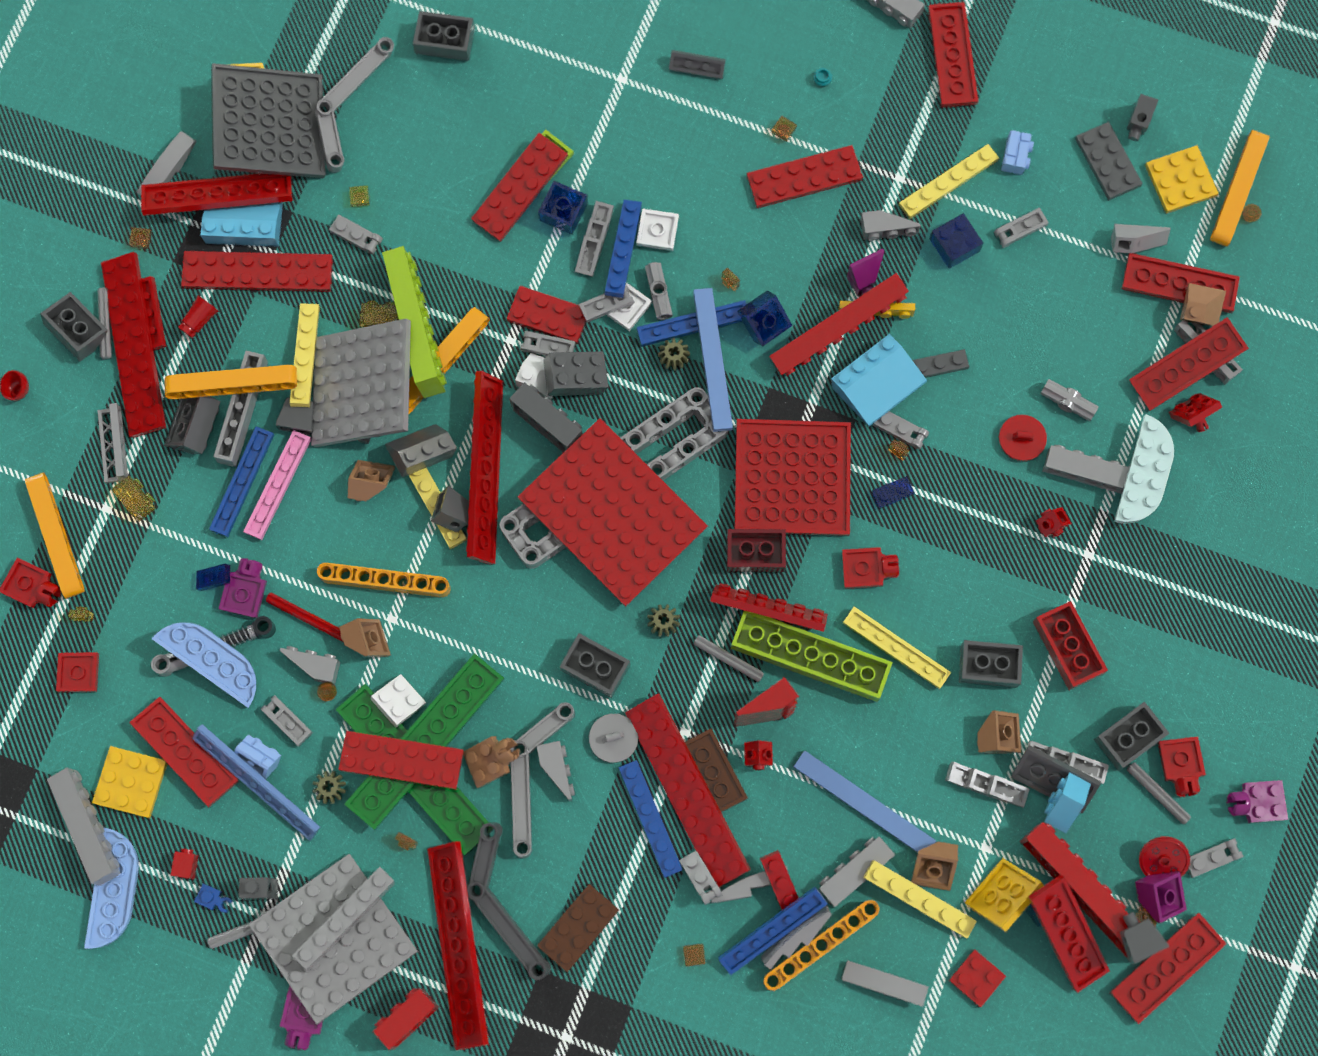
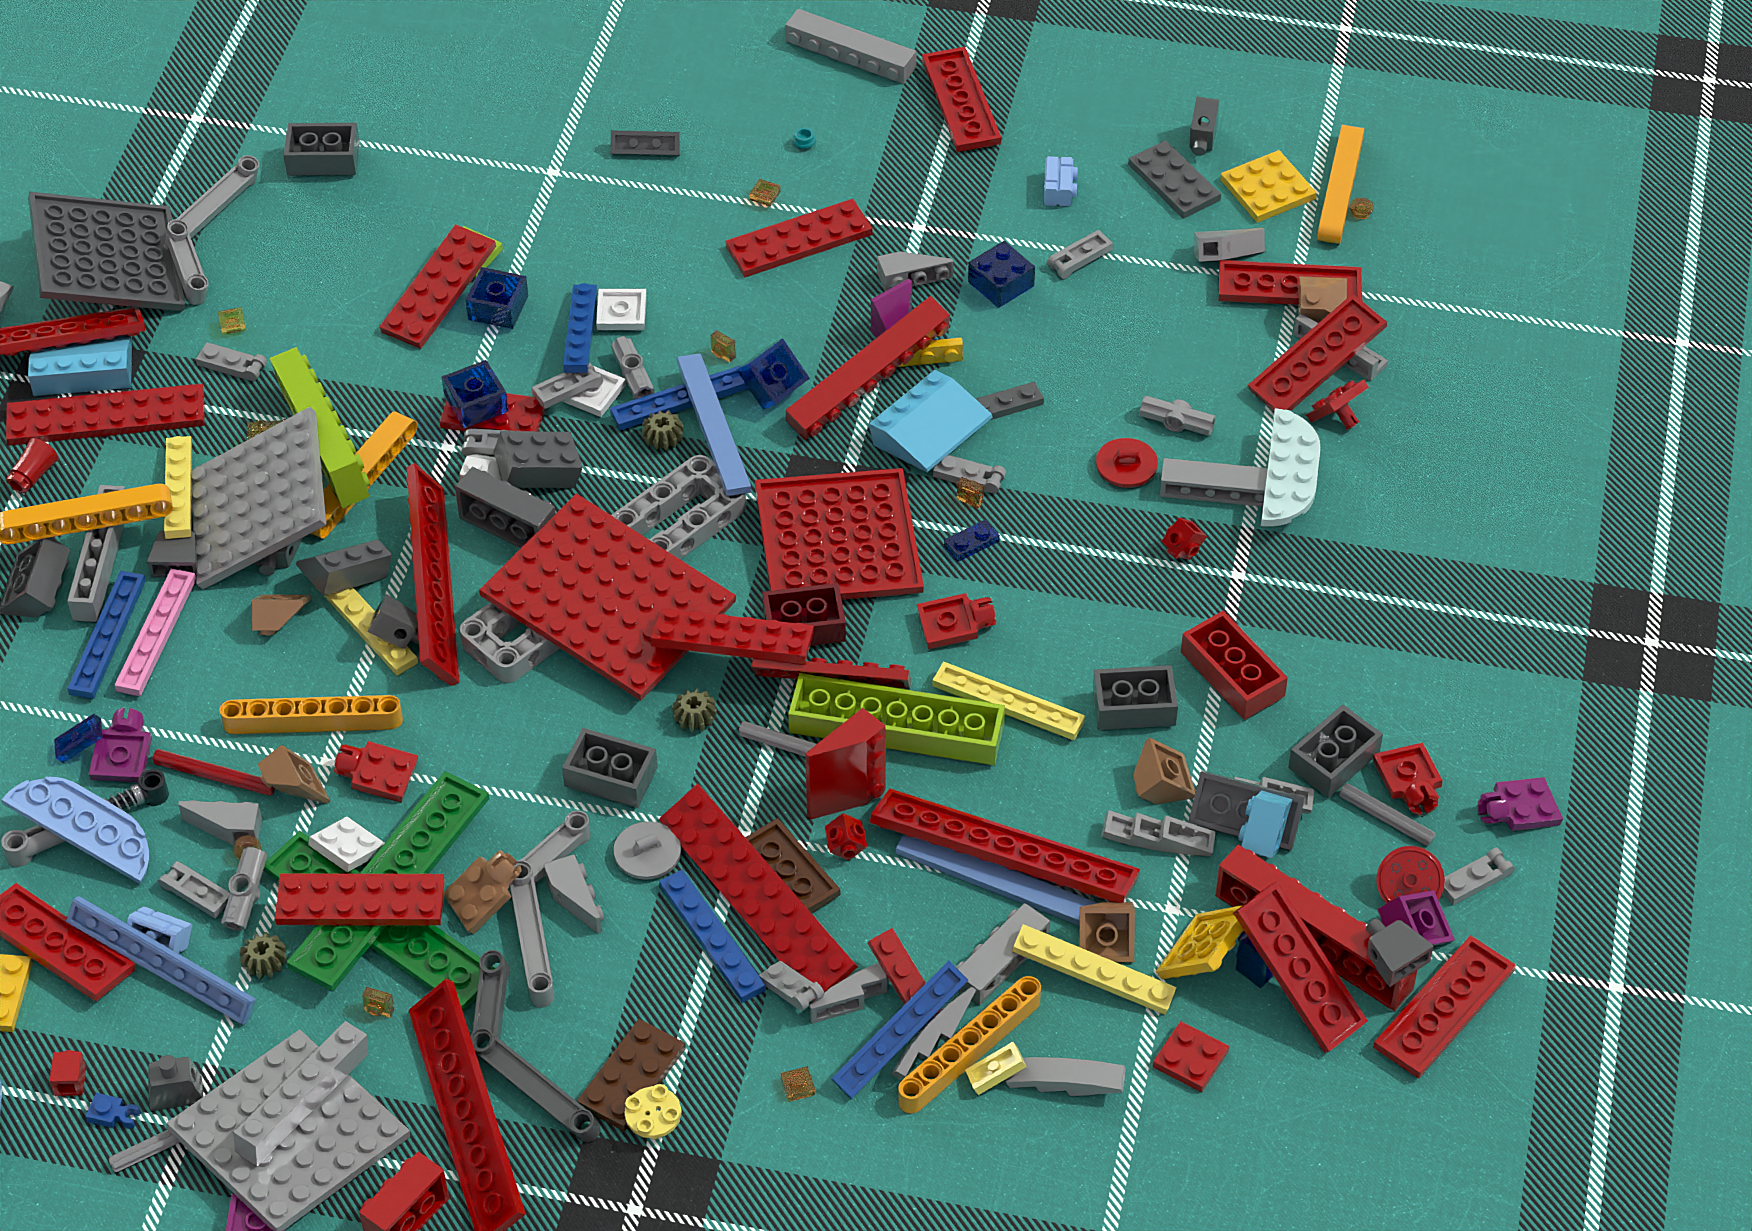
camera: 10 degrees left, 25 degrees down
(324, 718) = (241, 903): none -> light grey piece
(426, 636) = (377, 769): none -> red plate
(535, 306) = (475, 394): none -> clear blue brick
(585, 959) = (648, 1102): none -> light yellow plate
(594, 238) = (541, 327): light grey slope -> none
(699, 572) = (732, 635): none -> red plate
(836, 970) = (995, 1068): none -> light yellow plate
(873, 780) = (1005, 846): none -> red plate
(948, 181) = (981, 220): light yellow plate -> none

